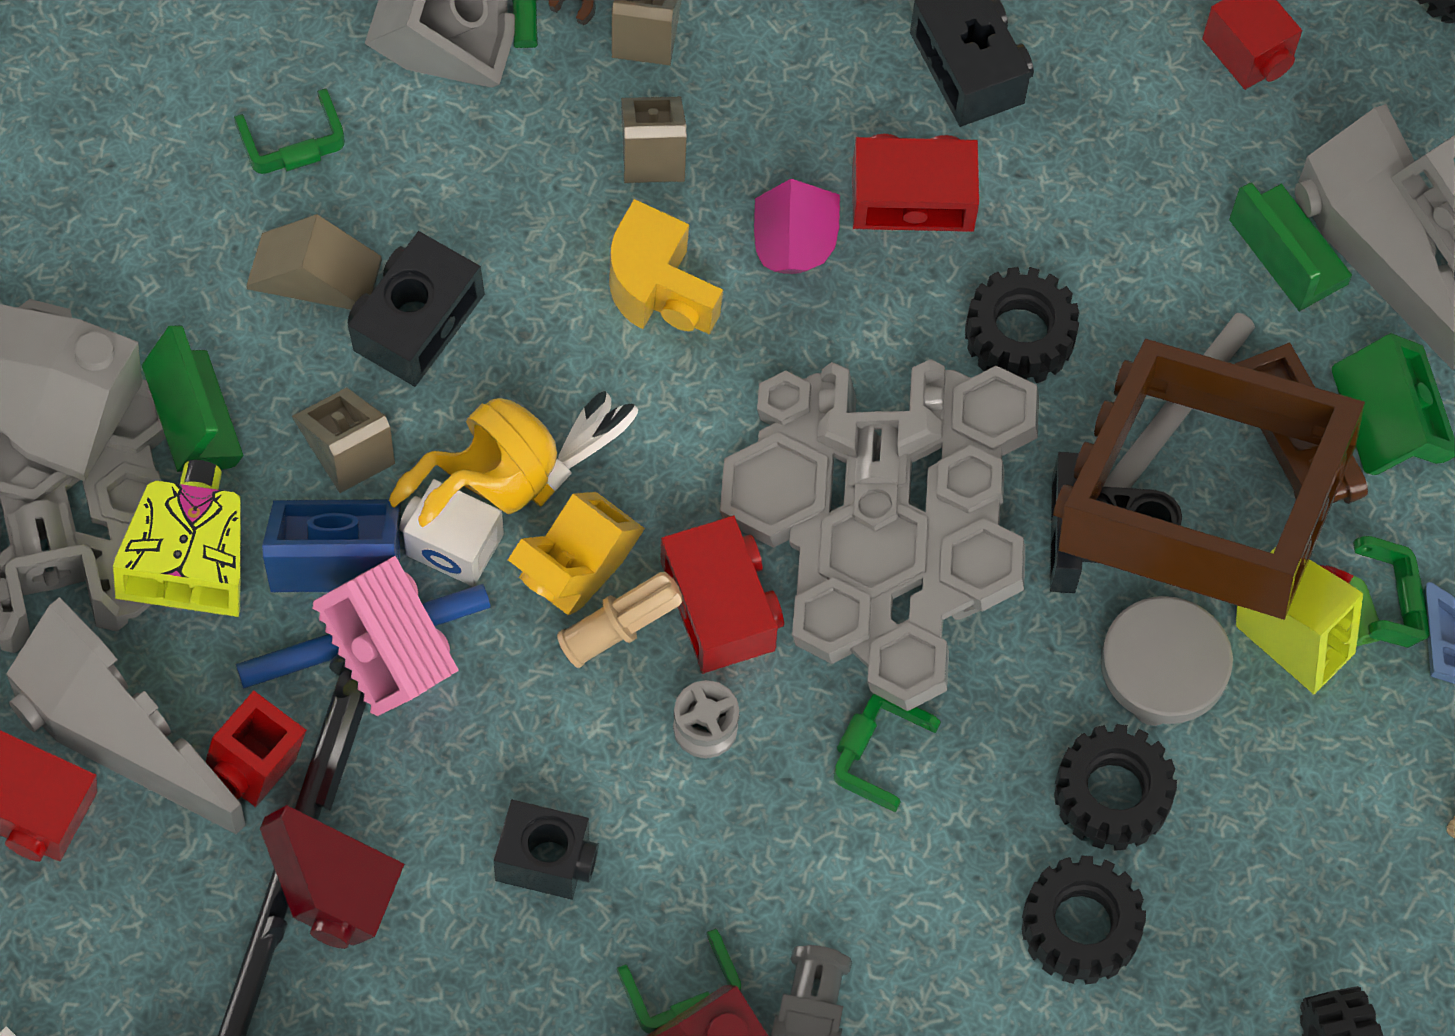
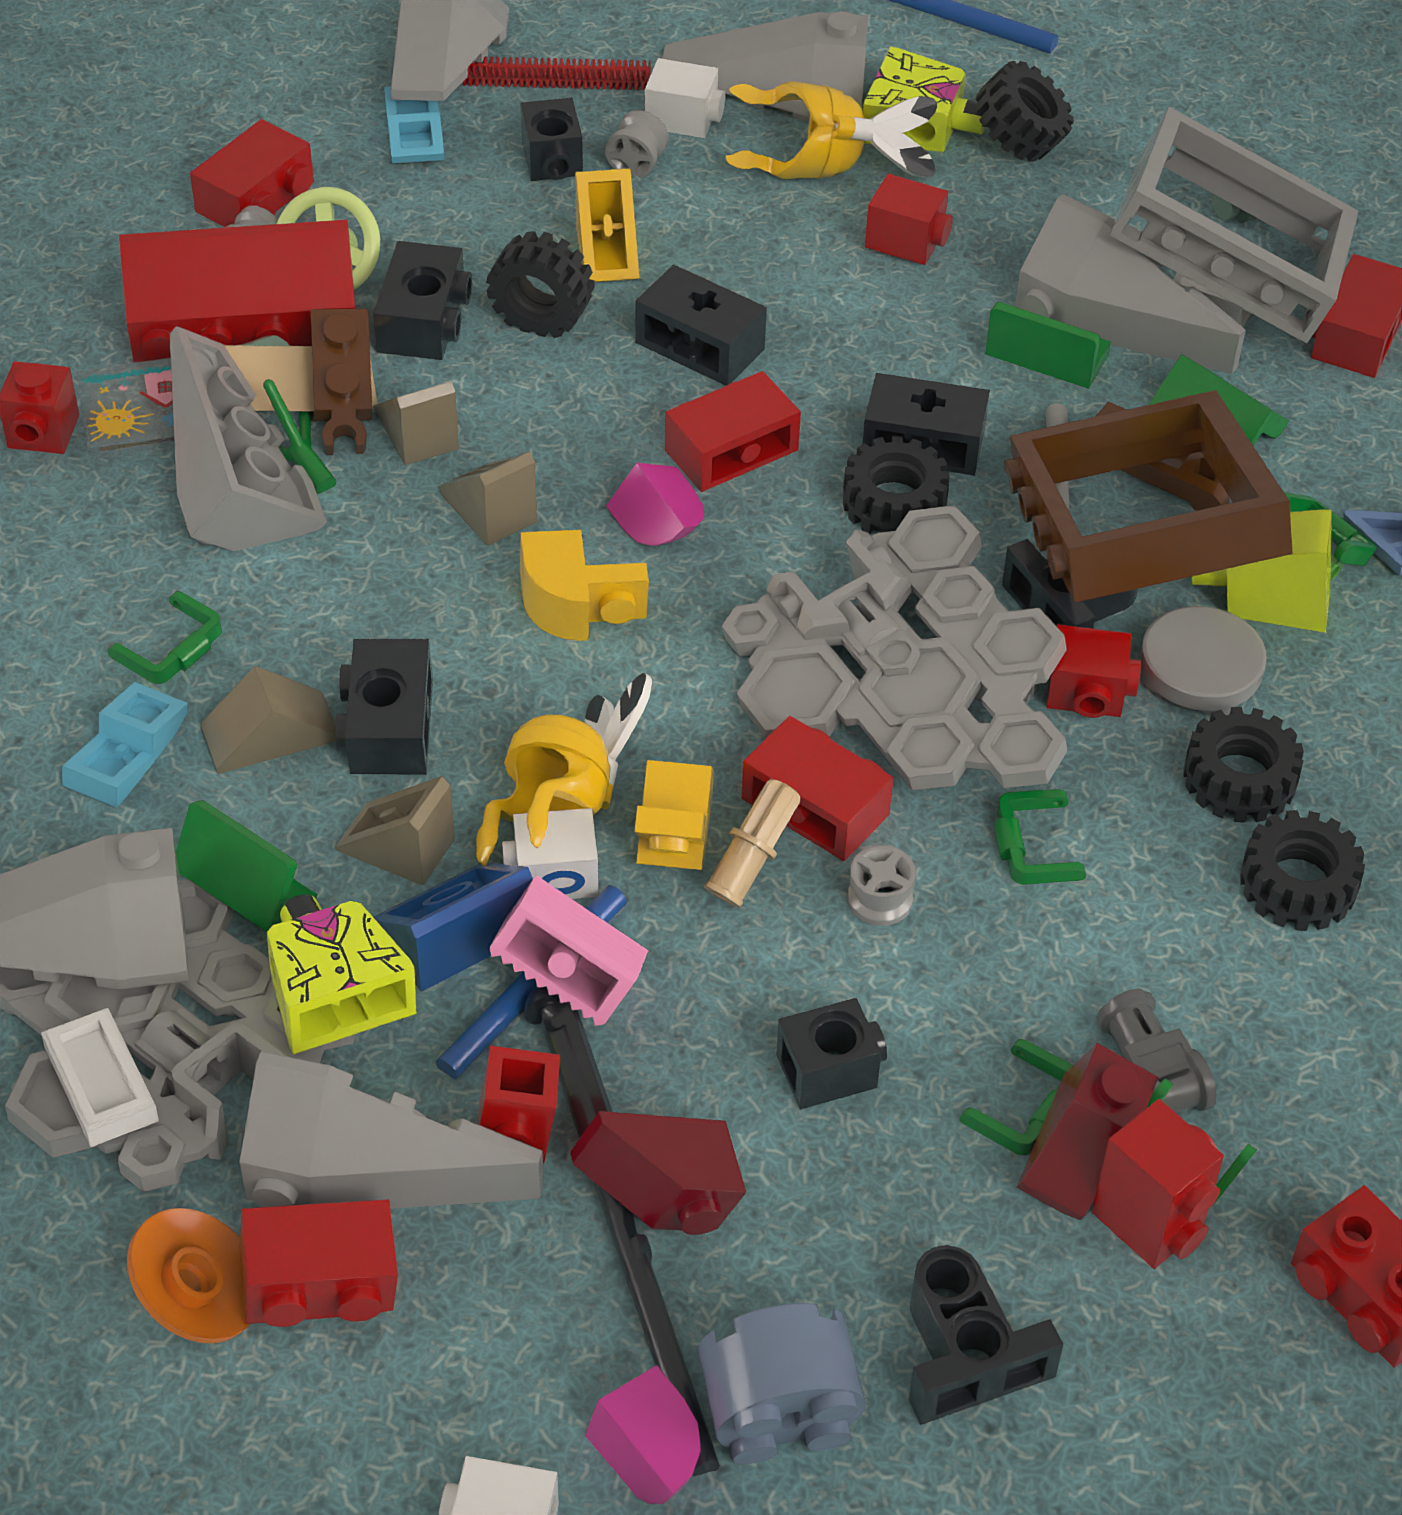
camera: 30 degrees left, 15 degrees down
(197, 216) = (129, 741): none -> medium azure slope
(1049, 618) = (1094, 673): none -> red brick
(1104, 270) = (933, 412): none -> black brick

